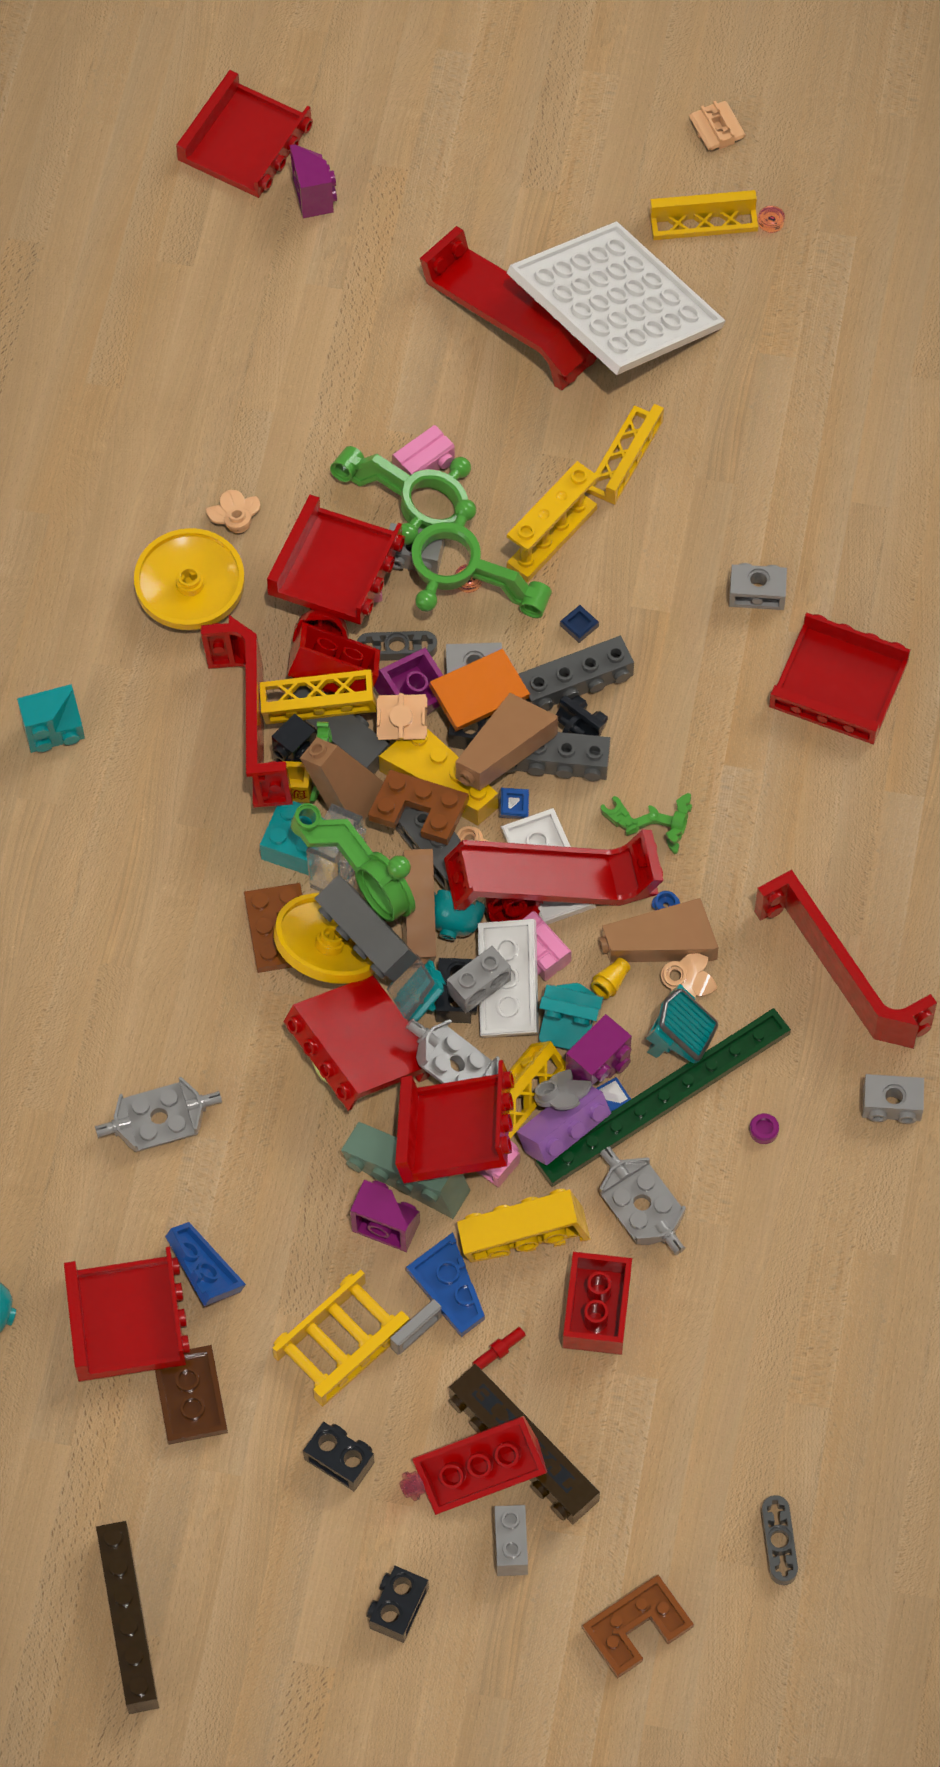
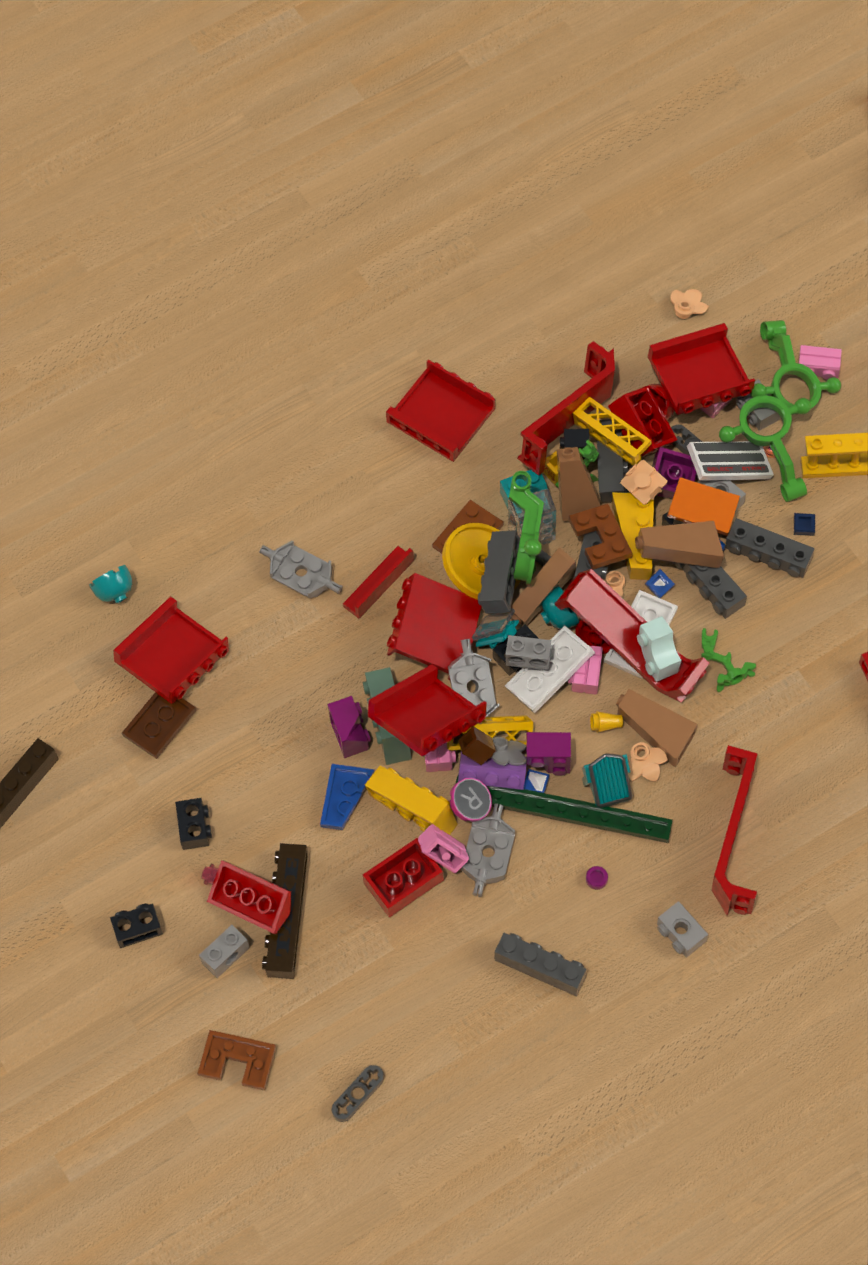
camera: 50 degrees right, 0 degrees up
(51, 718) = (470, 322): teal slope -> none
(115, 832) = (442, 411): none -> red panel
(189, 578) = (622, 315): yellow dish -> none
(203, 1265) = (235, 664): blue wing -> none
(245, 1054) = (379, 581): none -> red panel
(347, 1365) = (269, 786): yellow fence -> none
(416, 1327) = (302, 798): light grey tile -> none
(452, 625) = (729, 461): none -> tile
(499, 1348) = (331, 851): red bar -> none
(535, 1110) = (477, 745): none -> reddish brown brick
(568, 1013) = (561, 714): teal piece -> none
(577, 719) = (741, 573): black hips -> none
(580, 1168) = (470, 799): none -> tile
(591, 860) = (658, 649): none -> light aqua brick
(607, 1237) = (443, 848): none -> bright pink brick
(664, 897) = (681, 706): blue plate -> none
(807, 1255) = (540, 964): none -> dark grey brick

